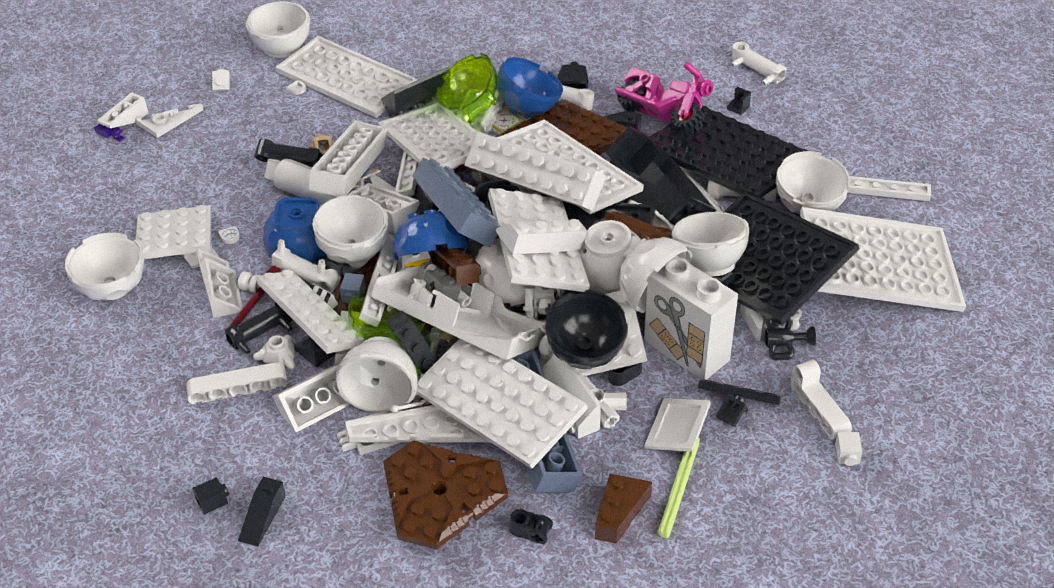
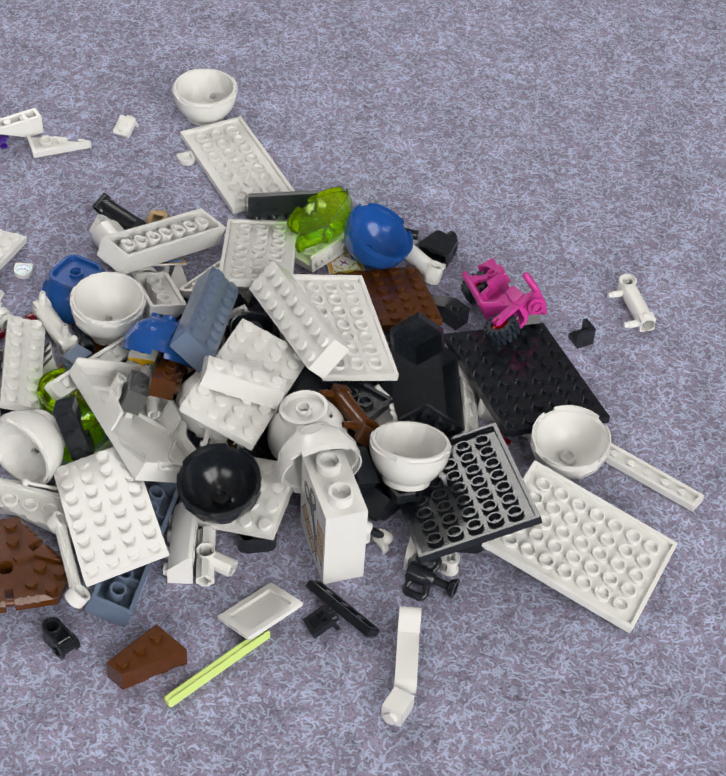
camera: 25 degrees right, 0 degrees up
(526, 477) = (77, 594): none -> white piece

